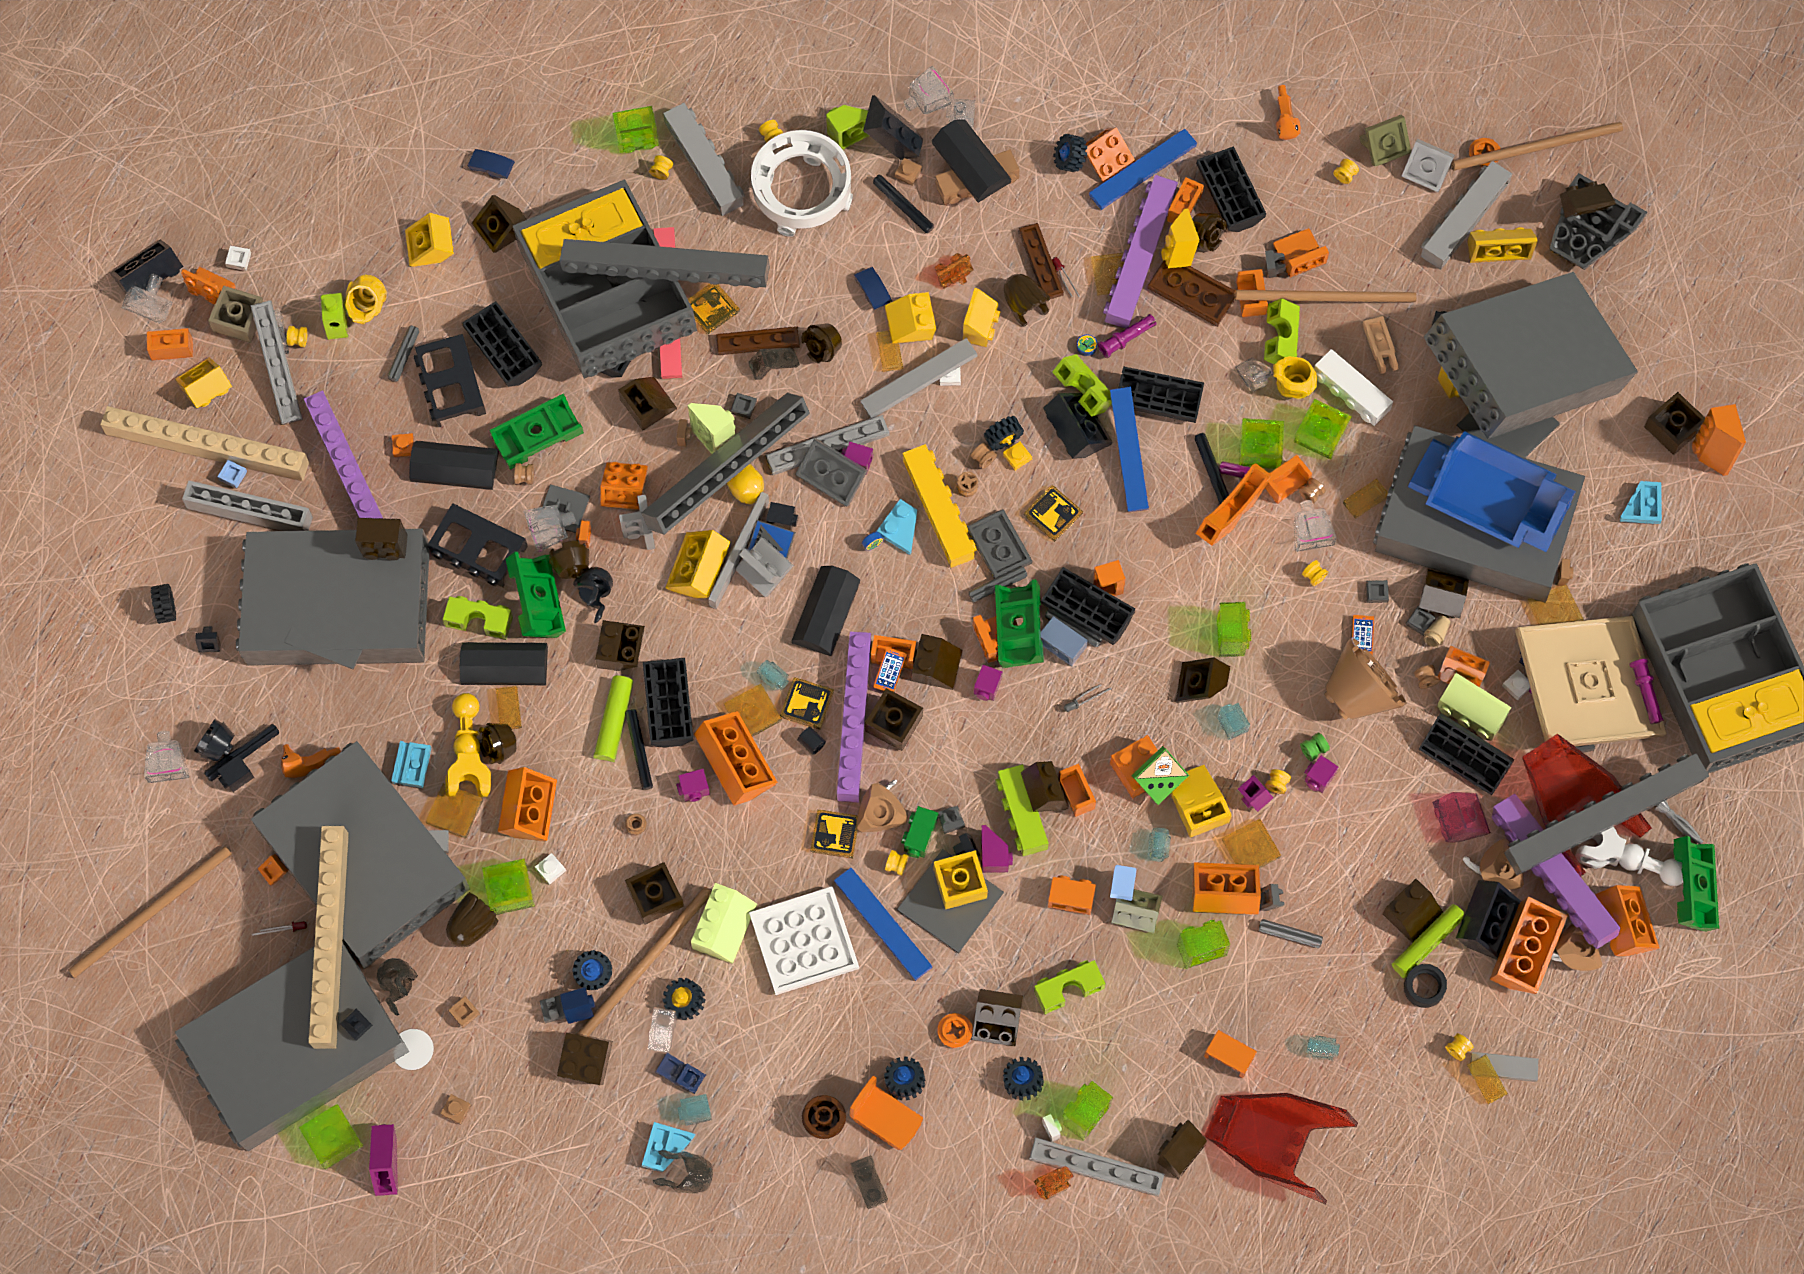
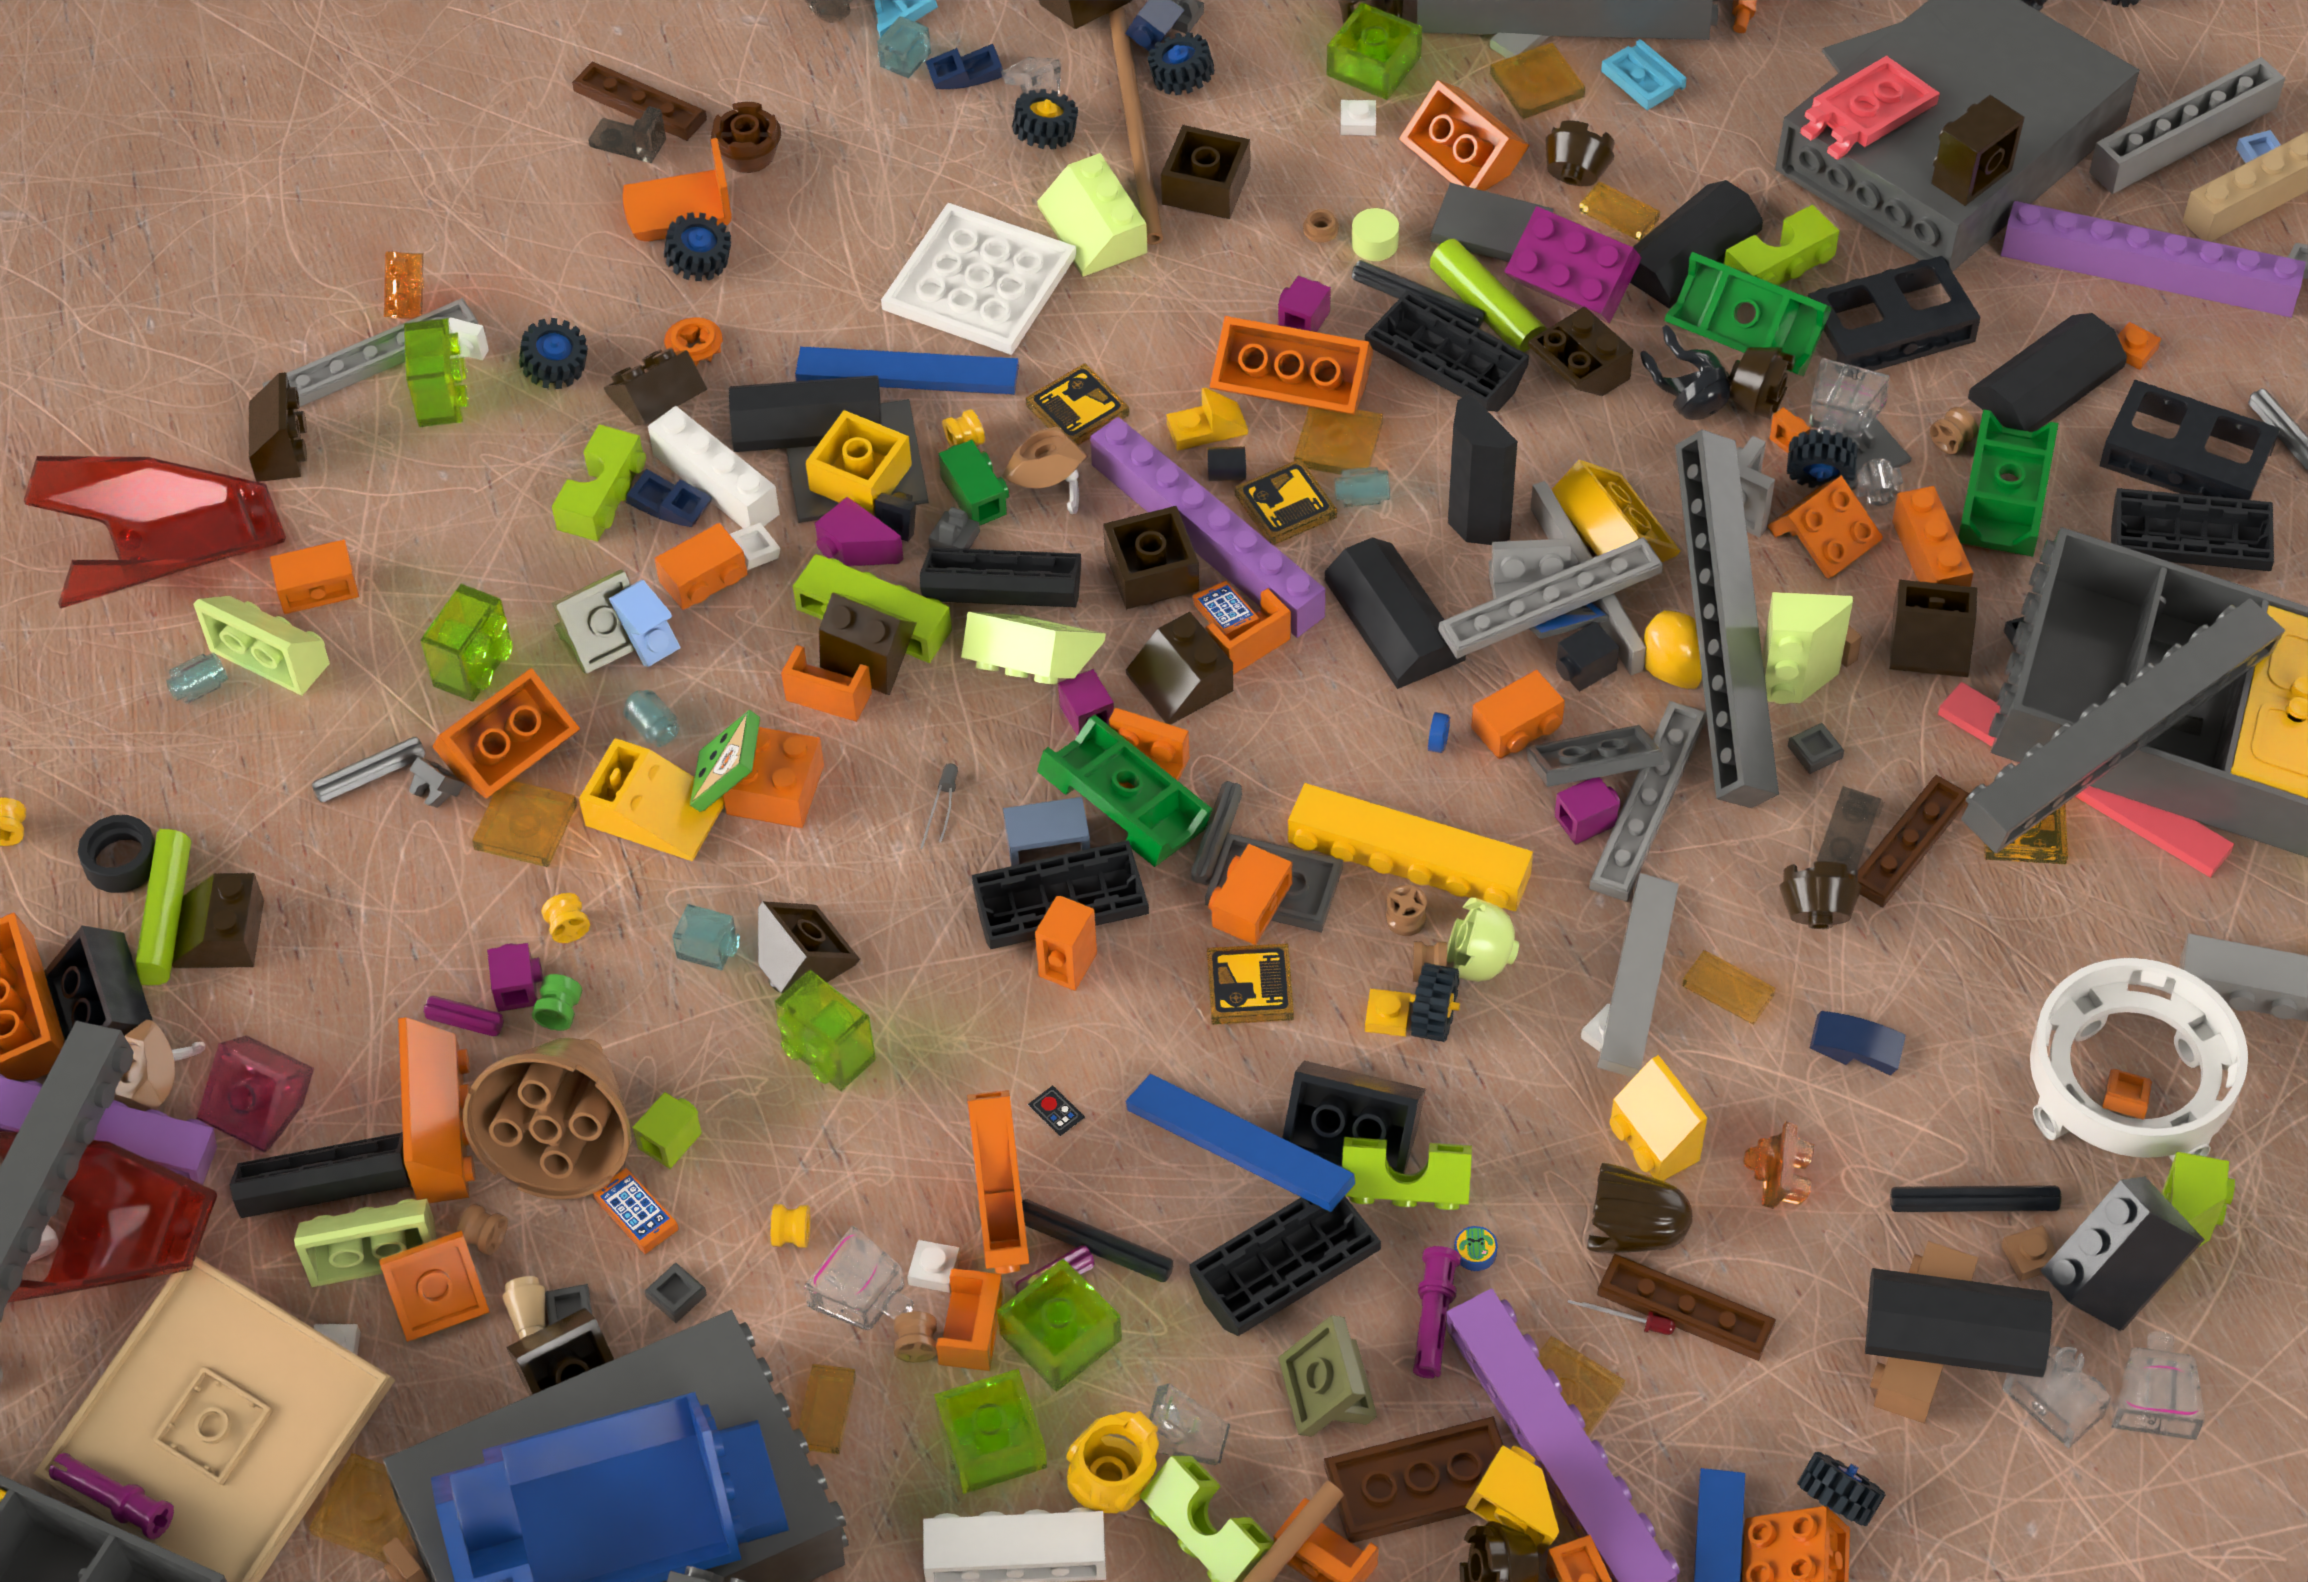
camera: 135 degrees right, 15 degrees down
(380, 614) = (1868, 105): none -> coral tile
(467, 748) = (1662, 161): yellow piece -> none
(568, 753) = (1482, 221): none -> dark grey tile
(572, 686) = (1573, 264): none -> magenta brick
(582, 479) = (1878, 482): none -> clear gear
(594, 504) = (1821, 458): none -> black wheel
(600, 433) = (1930, 538): none -> orange brick
(620, 795) = (1375, 234): none -> yellowish green piece
(742, 610) = (1481, 475): none -> black piece
(770, 130) = (2279, 1113): yellow wheel -> none
(773, 541) = (1550, 597): none -> light grey tile
(794, 772) = (1212, 422): none -> yellow slope
(814, 180) = (2127, 1093): none -> orange tile
(835, 519) = (1518, 714): none -> orange brick
(839, 1207) = (634, 98): none -> reddish brown tile
(900, 526) = (1428, 787): medium azure wing -> none
(911, 318) = (1749, 1043): yellow slope -> none
(948, 940) = (797, 411): none -> black piece
(959, 771) = (1001, 577): none -> black piece
(960, 441) = (1482, 941): none -> yellowish green cylinder
(984, 721) = (1028, 646): none -> yellowish green slope
(1018, 943) = (713, 469): none -> white brick
(1020, 536) = (1250, 894): none -> orange brick
(1038, 889) = (757, 545): none -> white plate
(1046, 952) = (669, 502): none -> dark blue slope
(1173, 534) = (1056, 1110): none -> black sticker
(1191, 342) = (1326, 1379): none -> olive bracket
(1254, 794) = (579, 874): magenta brick -> none
(1277, 515) = (933, 1265): none -> white plate
(1281, 1034) = (262, 642): none -> yellowish green slope
(1322, 653) = (667, 1129): none -> lime brick
(1353, 779) = (463, 1016): none -> magenta axle
(1404, 737) = (433, 1111): none -> orange slope

